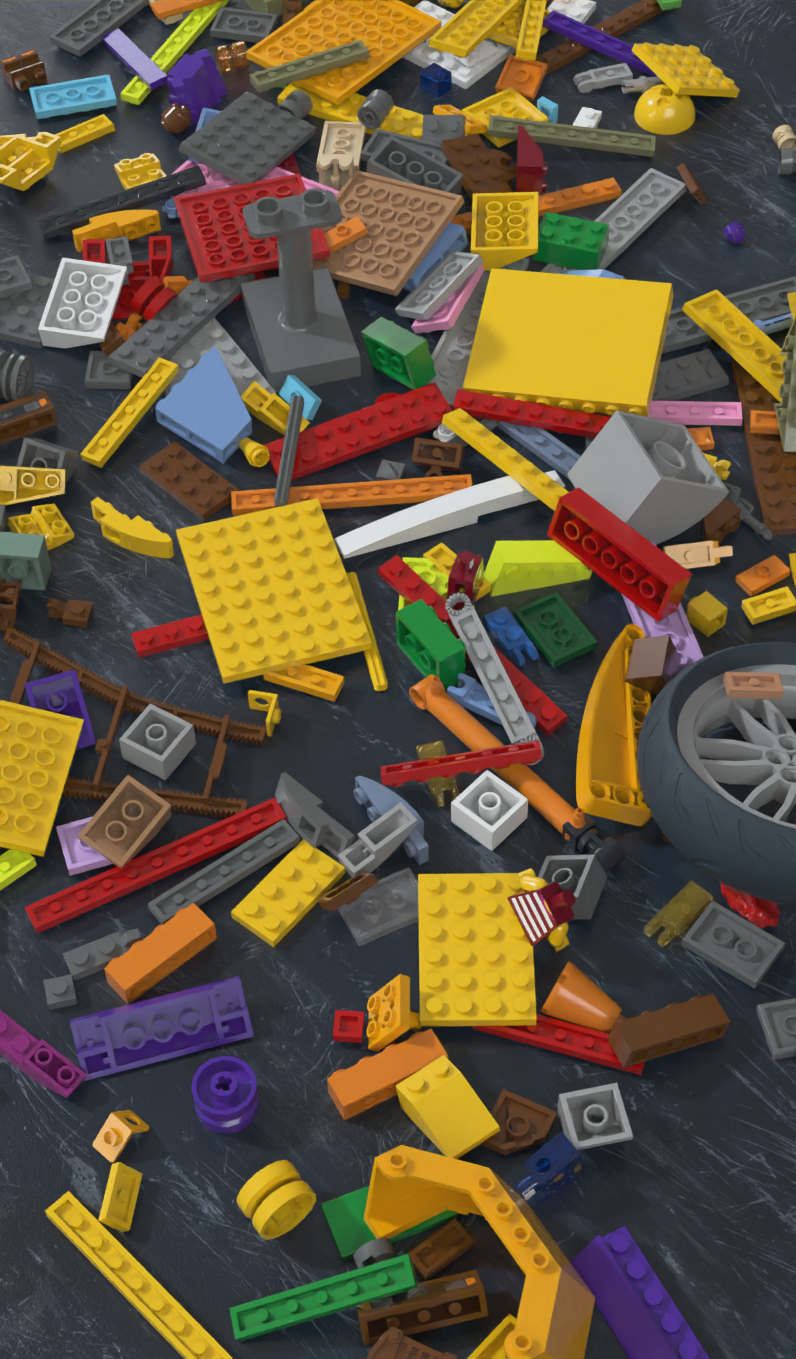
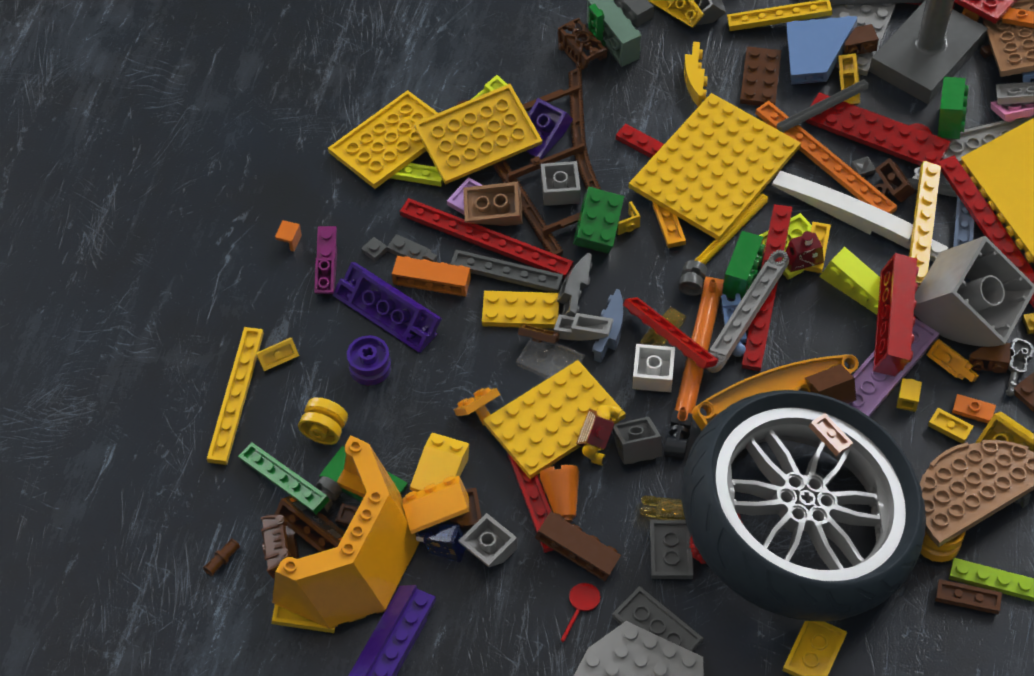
camera: 55 degrees right, 5 degrees up
(43, 521) = (659, 35): yellow slope -> none
(74, 613) = (615, 89): reddish brown plate -> none
(117, 1132) = (312, 327): light orange bracket -> none
(242, 366) = (861, 40): none -> reddish brown slope
(248, 735) = (598, 220): none -> green brick
(254, 452) = (810, 92): yellow cone -> none
(293, 386) = (875, 85): medium azure plate -> none
(348, 1026) = (457, 390): red plate -> none
(376, 1077) = (426, 420): orange brick -> none
(400, 701) = (692, 278): none -> dark grey wheel
(510, 635) = (796, 303): blue hinge -> none
(512, 1136) = (435, 504): none -> light orange slope
(555, 629) = (821, 322): dark green plate -> none
(731, 1072) = (583, 598): none -> red piece

